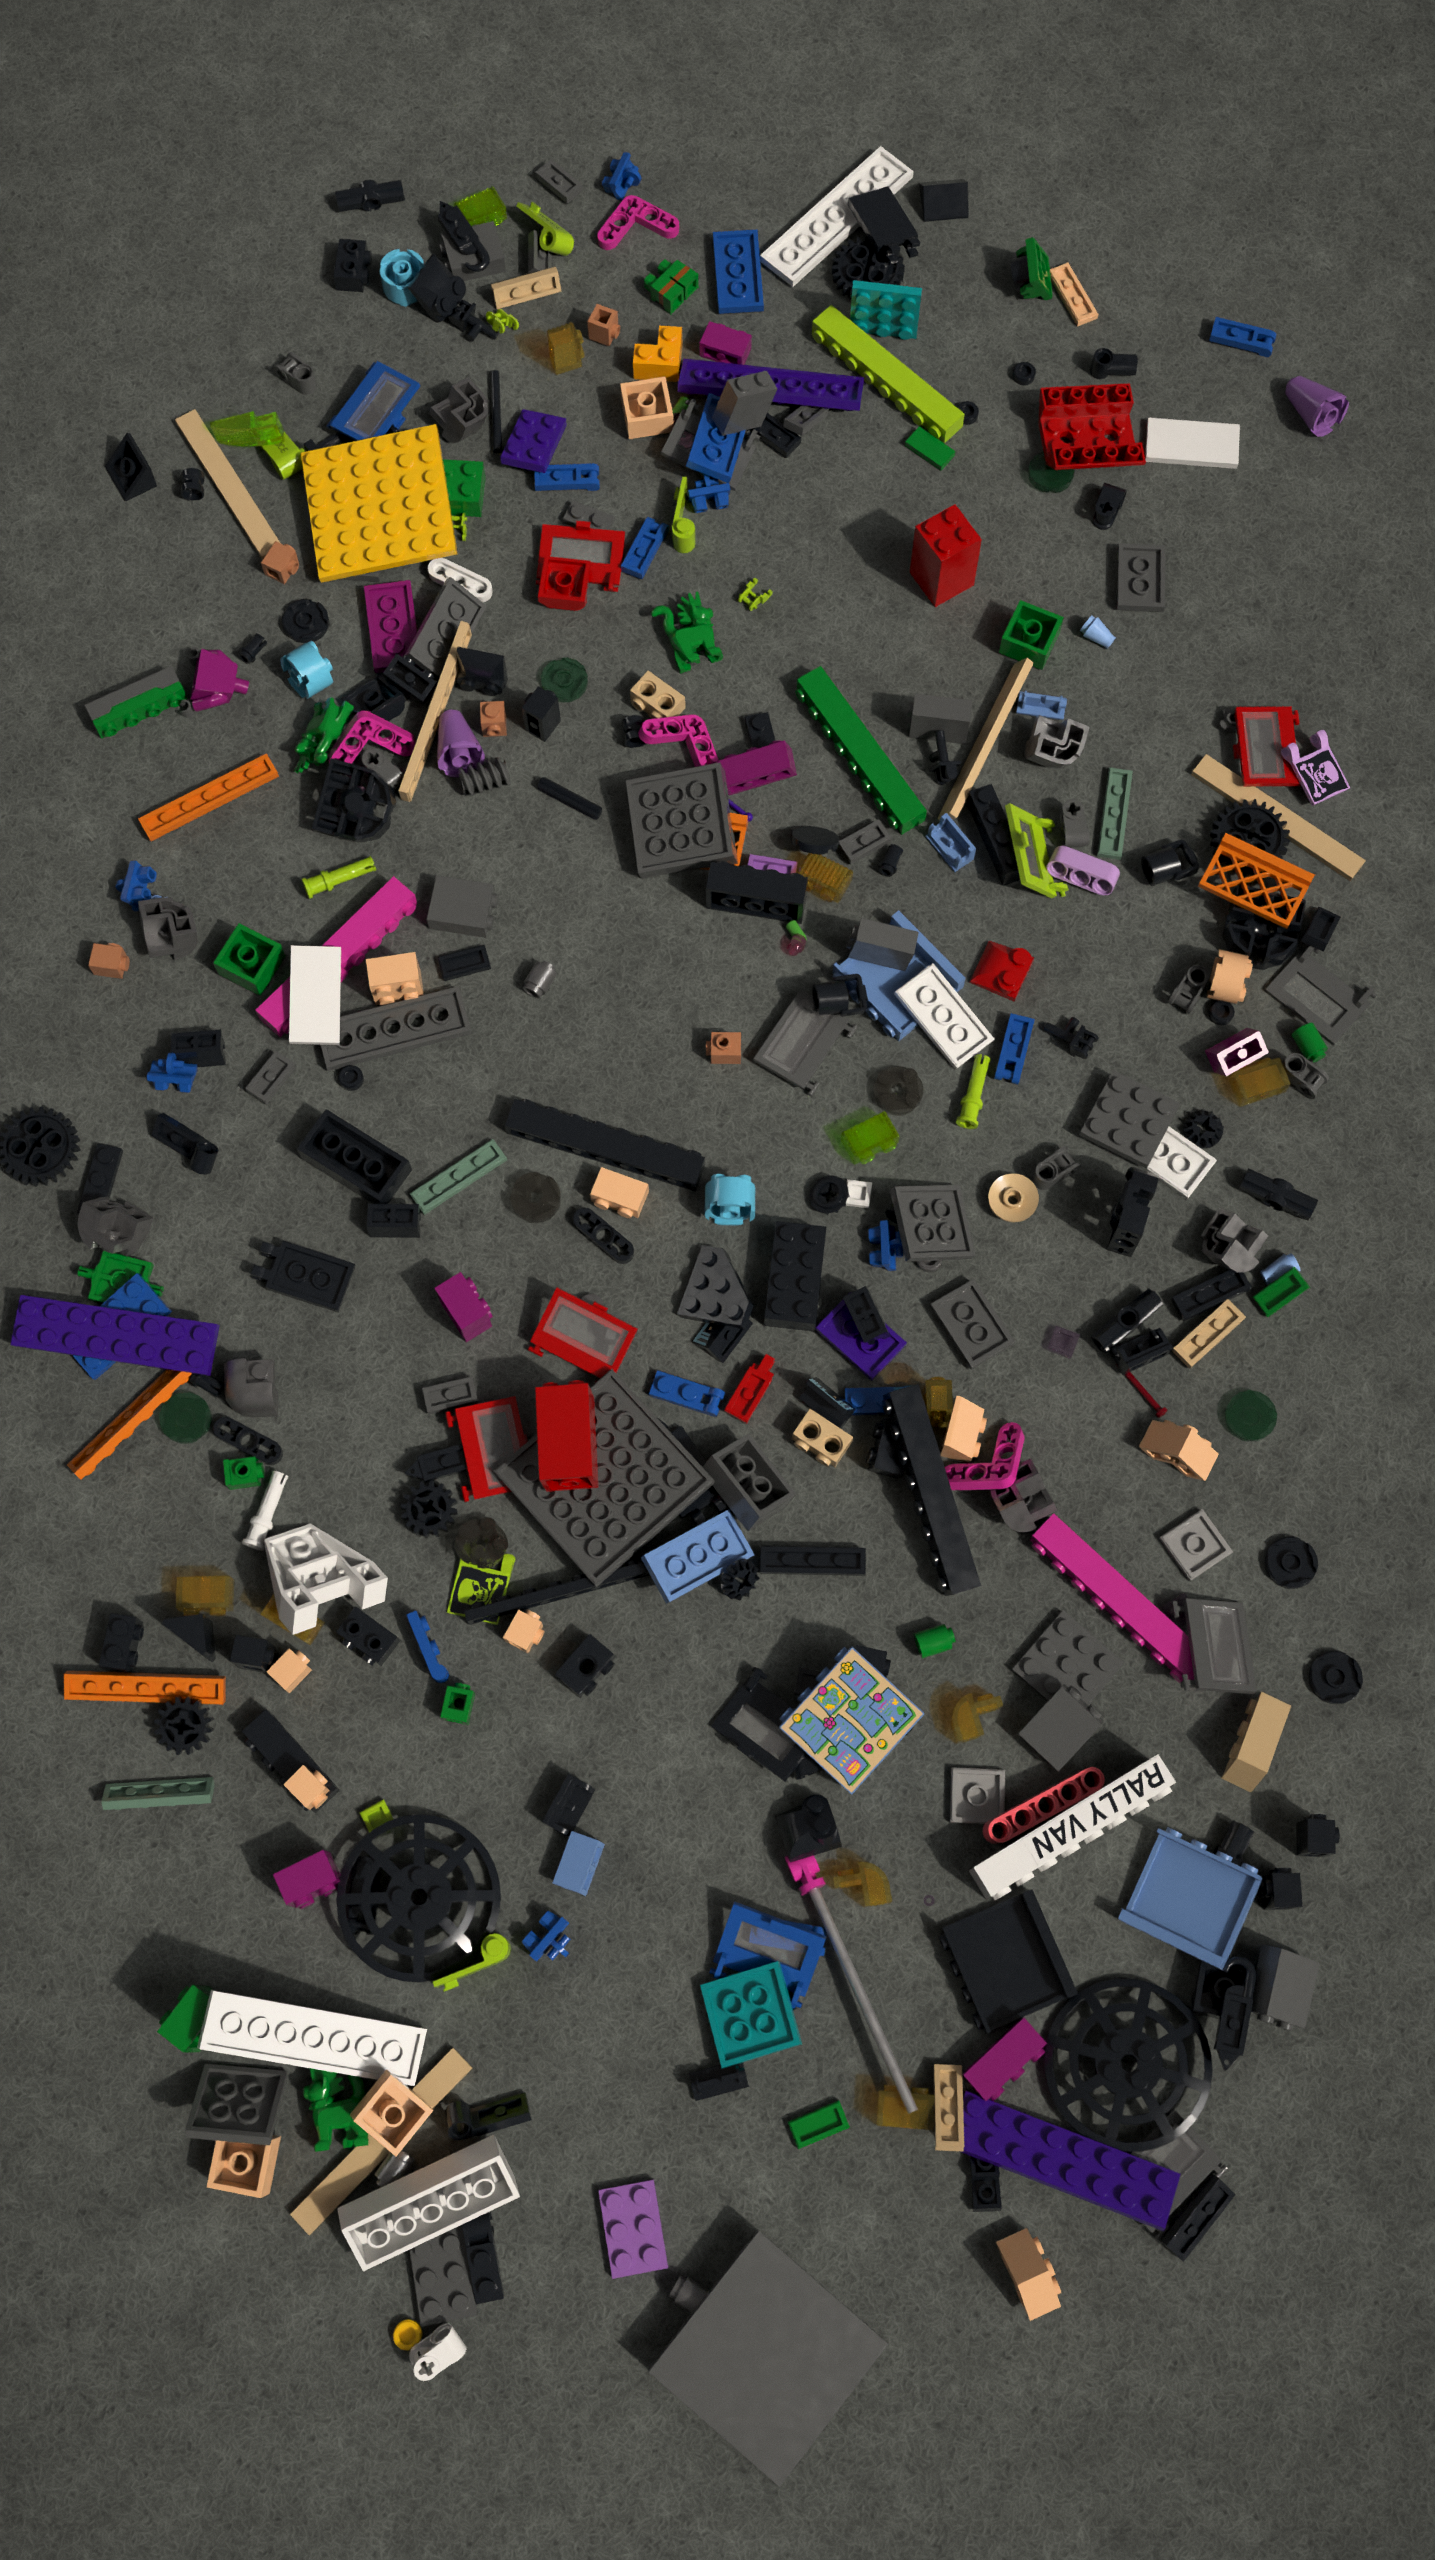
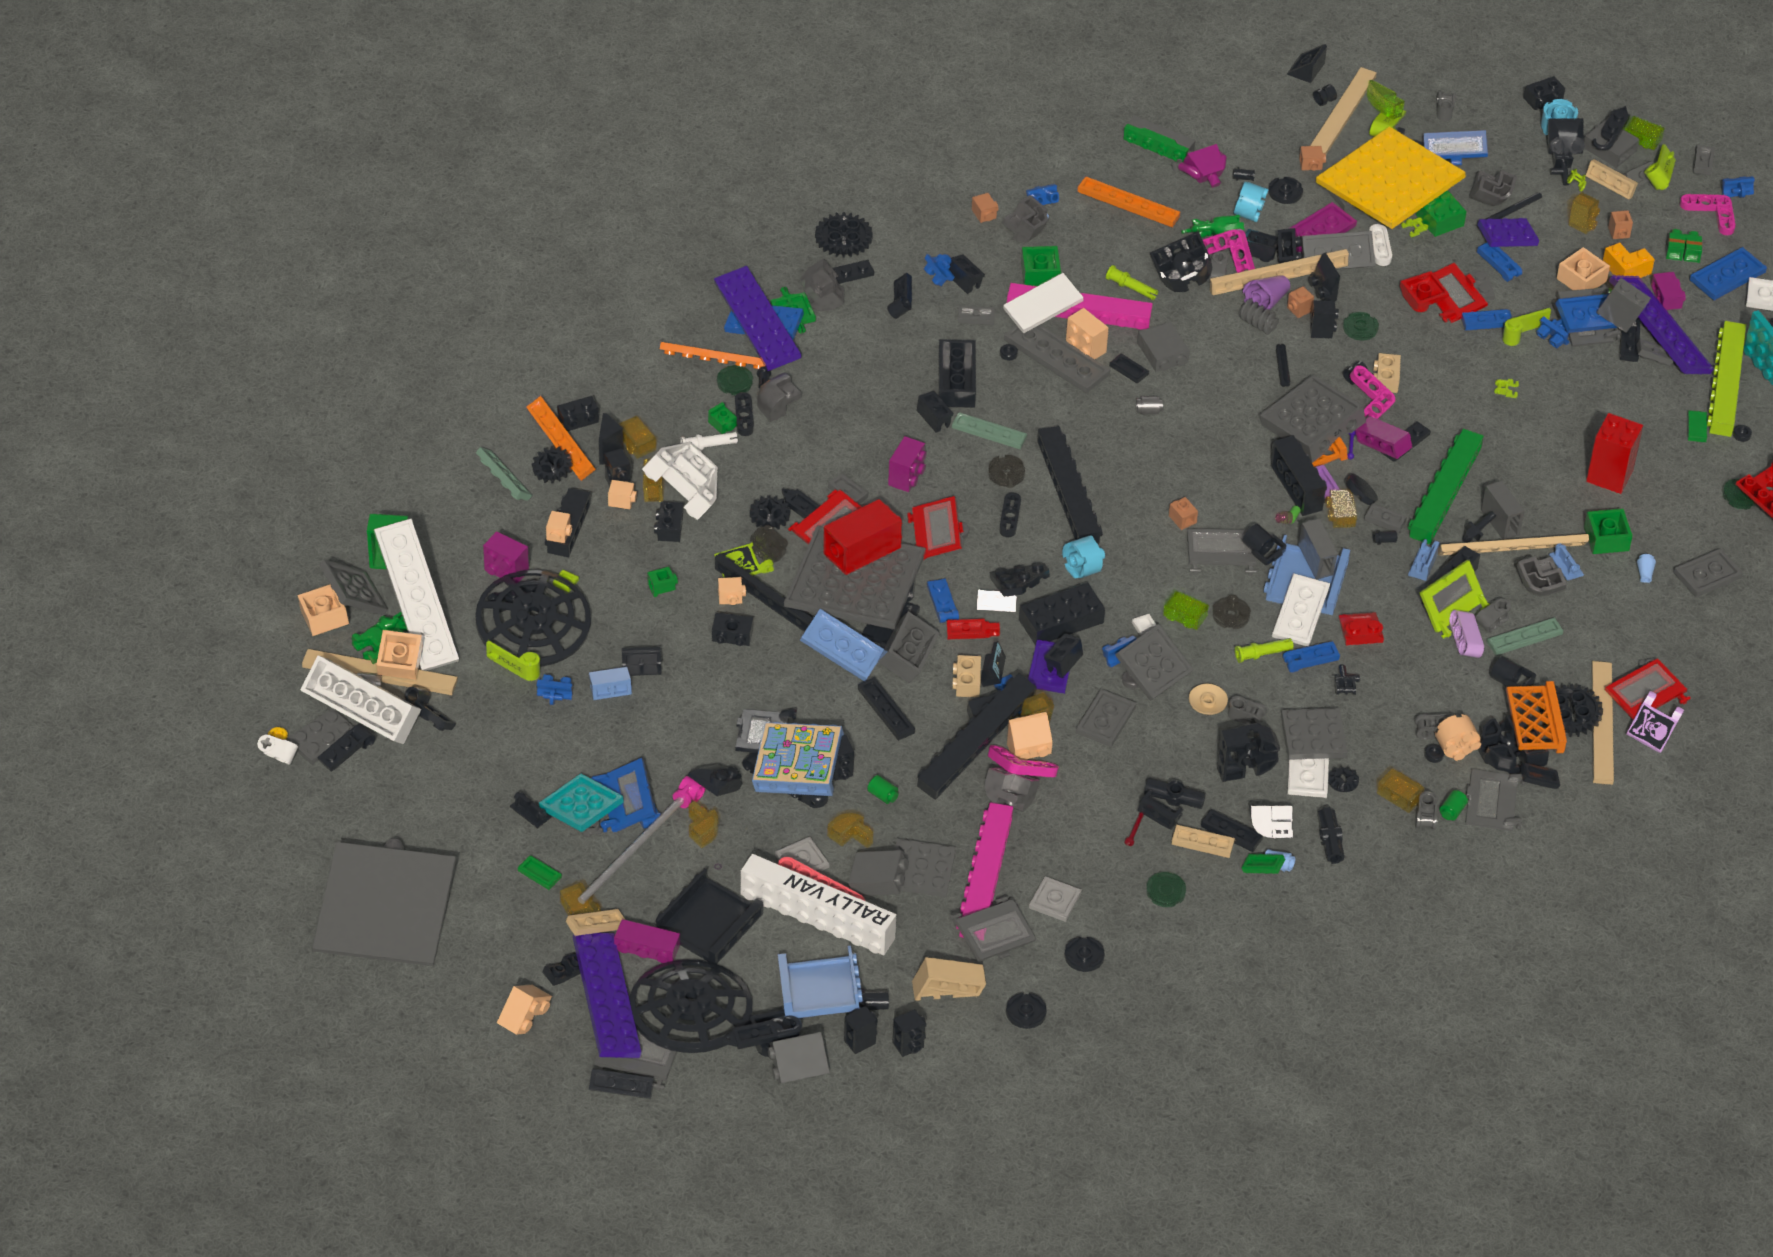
camera: 55 degrees right, 25 degrees down
(305, 1275) = (867, 389): black tile -> none
(370, 195) = (1602, 78): black piece -> none
(428, 1648) = (685, 550): blue plate -> none
(619, 1193) = (1043, 507): light nougat brick -> none
(633, 2229) = (413, 811): medium lavender plate -> none
(693, 638) = (1449, 372): green animal -> none
(739, 1568) = (851, 669): black gear -> none
(823, 1187) = (1130, 608): black gear -> none
(1063, 1342) = (1134, 771): clear purple tile -> none
(1108, 505) = (1746, 532): black piece -> none
(1180, 1447) = (1110, 854): light nougat brick -> none
(1236, 1051) = (1410, 765): magenta brick -> none

